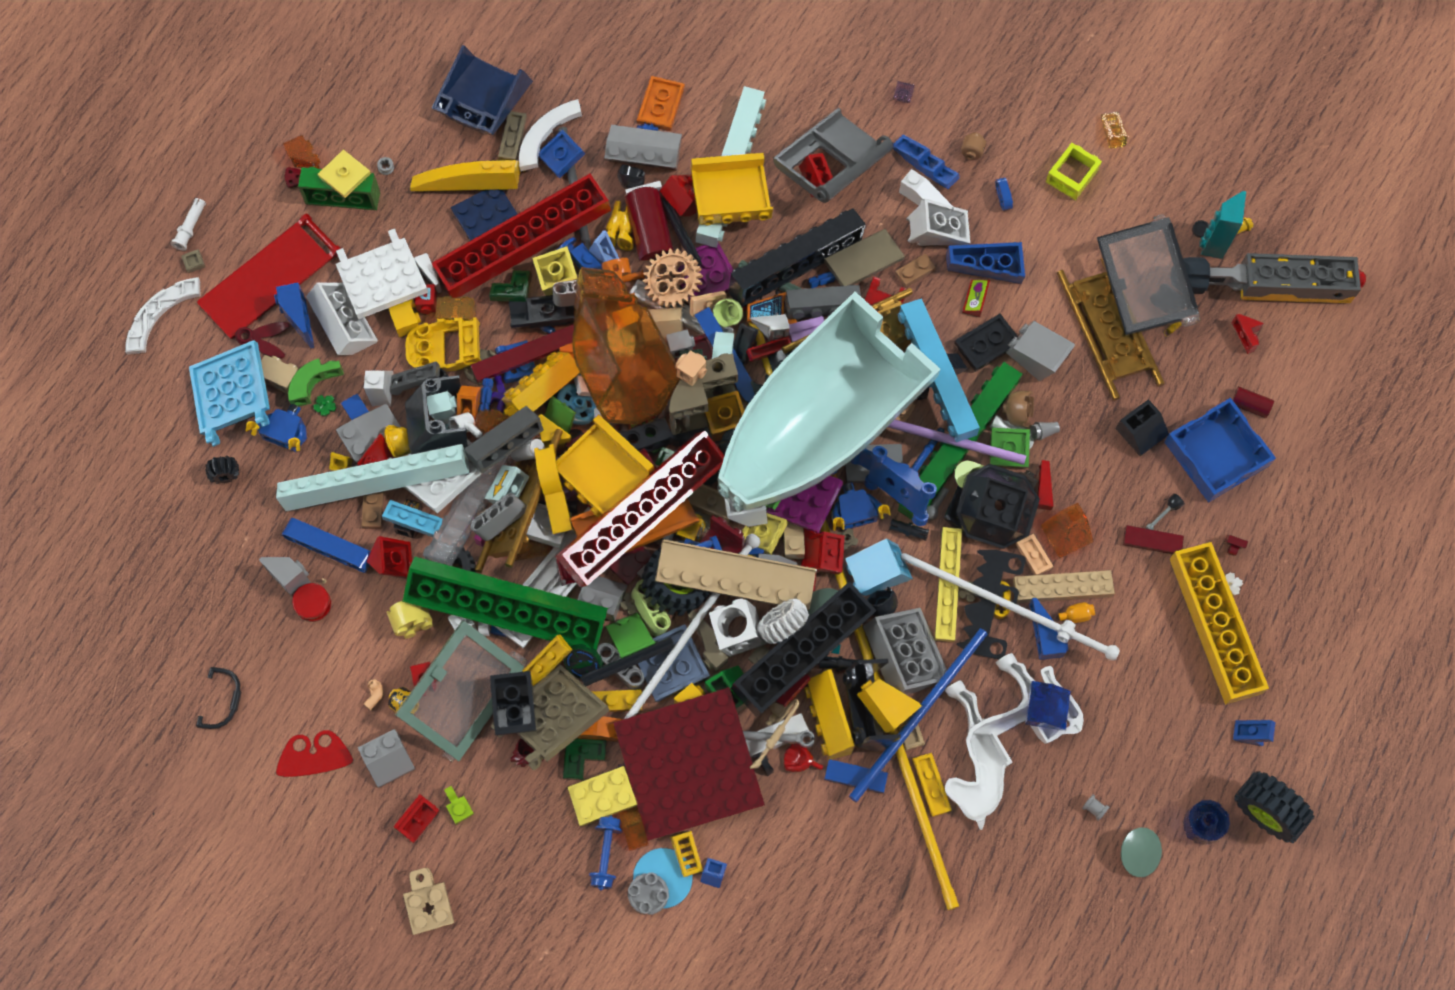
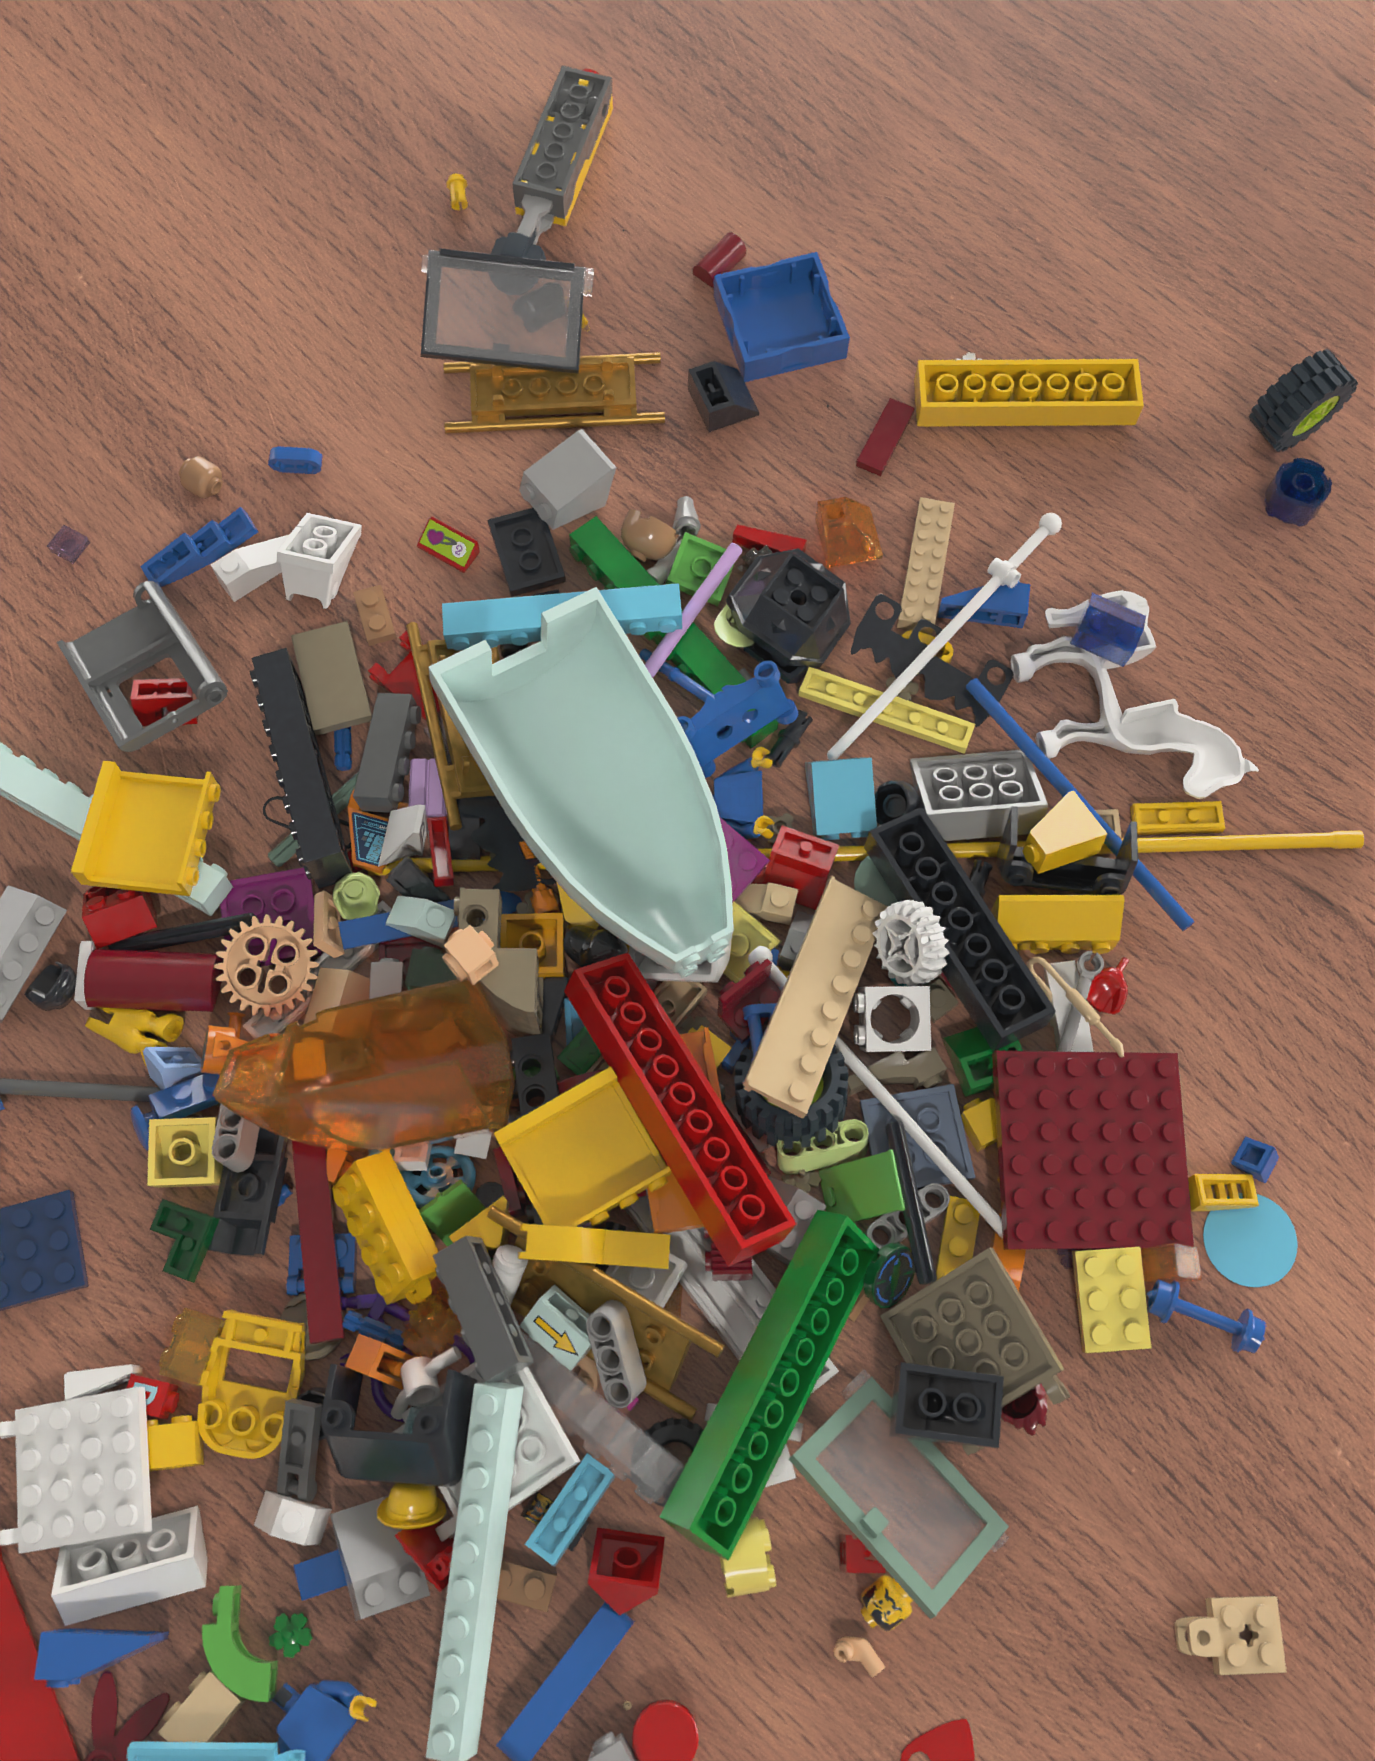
camera: 75 degrees left, 0 degrees up
(339, 462) = (414, 1627): yellow slope -> none
(386, 758) = (978, 1655): light grey slope -> none
(416, 818) = (1092, 1624): red hinge -> none
(441, 405) = (374, 1407): light aqua slope -> none
(458, 807) = (1084, 1543): lime plate -> none
(521, 236) = (97, 1199): red brick -> none
(548, 659) = (875, 1334): yellow tile -> none
(578, 752) = (1057, 1332): dark green tile -> none
(648, 893) = (1276, 1266): light grey dish -> none
(768, 769) = (1099, 1041): black tile -> none
(851, 775) = (1144, 922): blue tile -> none
(991, 261) = (400, 506): blue wedge -> none
(1034, 555) = (865, 586): light nougat plate -> none
(1064, 183) = (296, 386): neon yellow window -> none
(1078, 613) = (969, 557): light orange plant -> none
(1095, 807) = (1250, 618): light grey bush -> none
(1118, 139) = (262, 298): clear yellow slope -> none
(1141, 852) = (1323, 581): sand green shield -> none
(1174, 503) = (839, 394): hinge -> none
(1199, 228) = (441, 238): black piece -> none
(1223, 227) = (465, 193): teal slope -> none
(1235, 543) = (919, 342): dark red tile -> none
(1246, 329) = (612, 234): red slope -> none
(1254, 731) = (1184, 399): blue slope -> none

